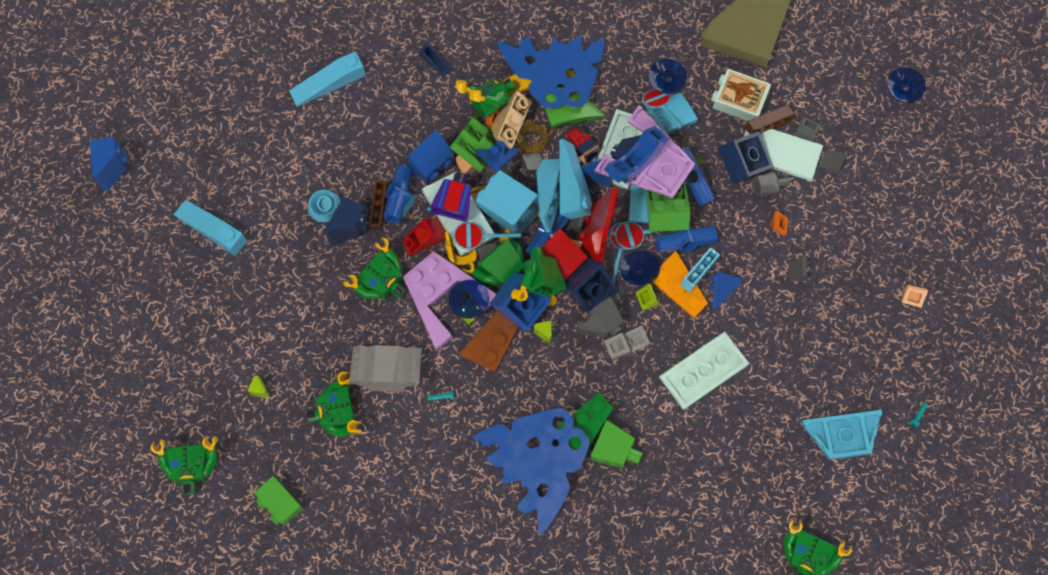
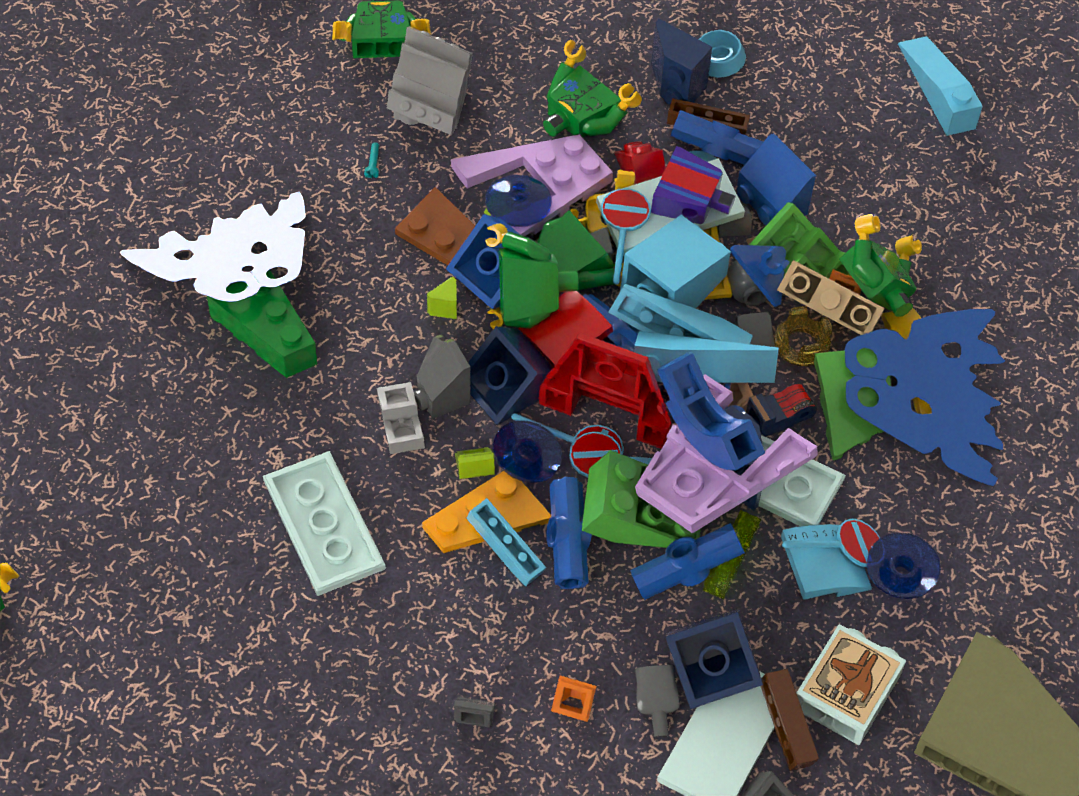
camera: 95 degrees right, 15 degrees down
(434, 60) = (967, 225): dark blue piece -> none
(614, 447) = (225, 362): bright green torso -> none
(723, 287) = (465, 574): blue piece -> none
(844, 434) = (145, 719): medium azure wing -> none

